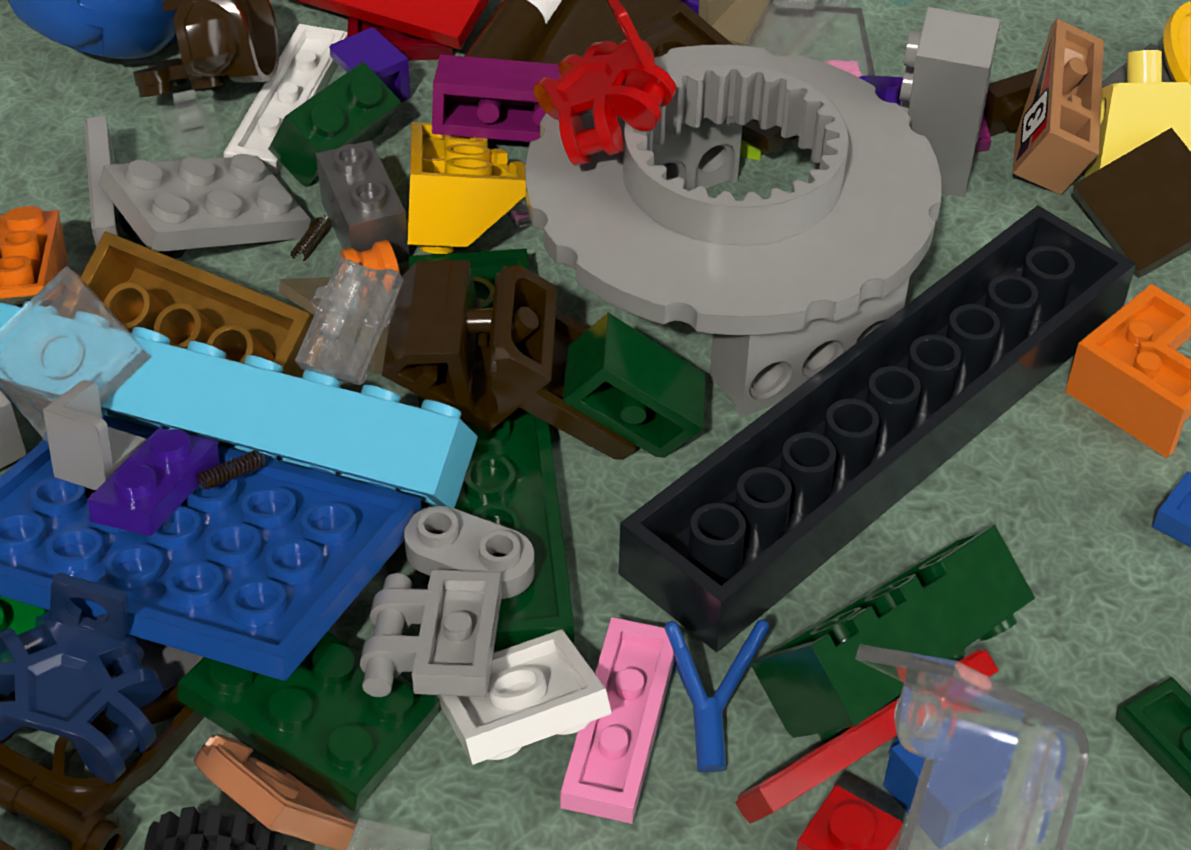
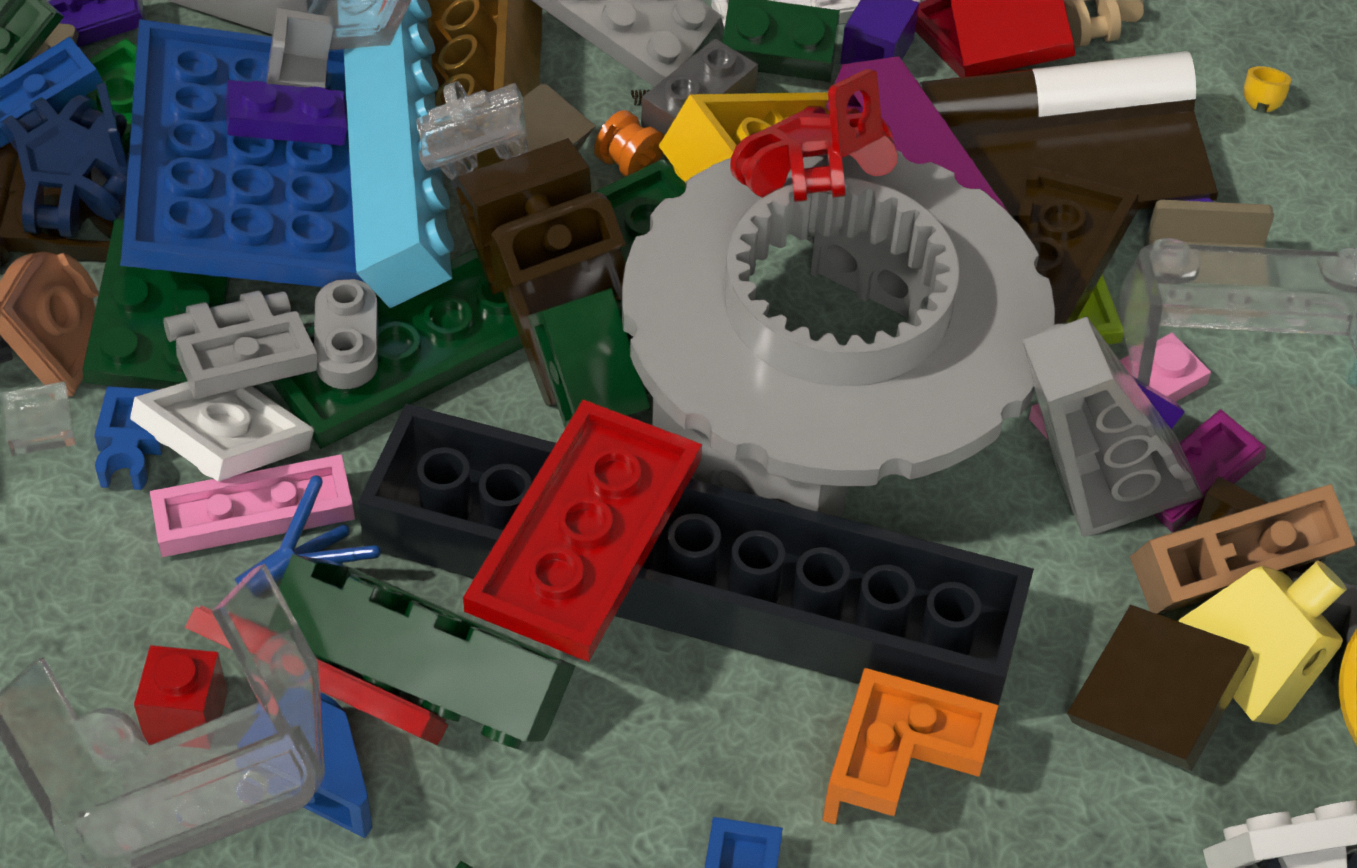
camera: 60 degrees right, 5 degrees up
(211, 483) = (324, 151): dark brown leg -> none
(449, 789) = (121, 439): none -> blue plate
(869, 443) = (583, 530): none -> red plate

